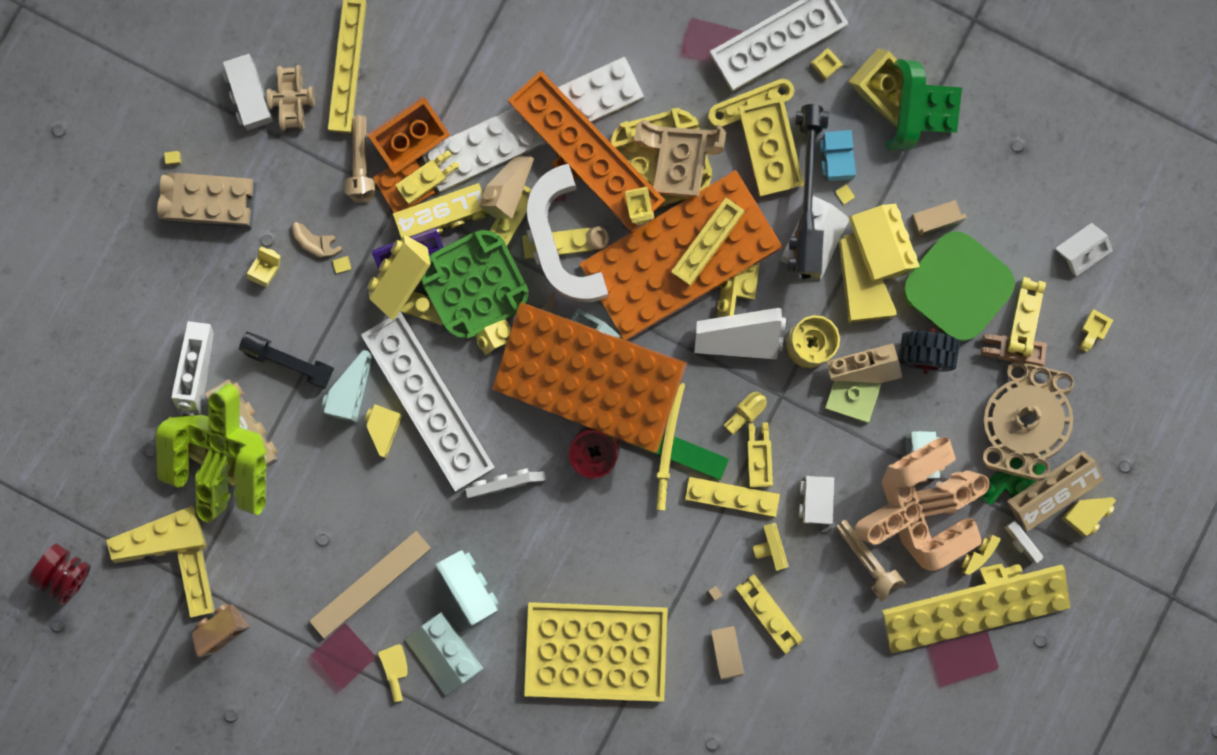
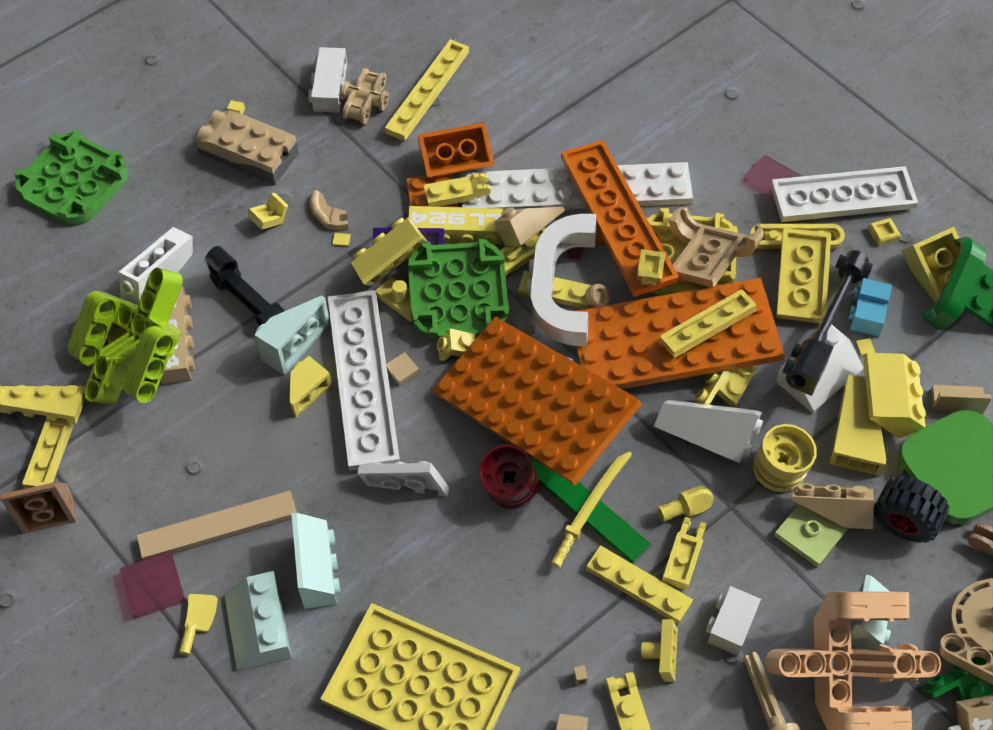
camera: 25 degrees right, 25 degrees down
(59, 299) = (71, 178): none -> bright green tile
(359, 183) = (392, 175): tan piece -> none
(457, 377) = (402, 369): none -> tan tile

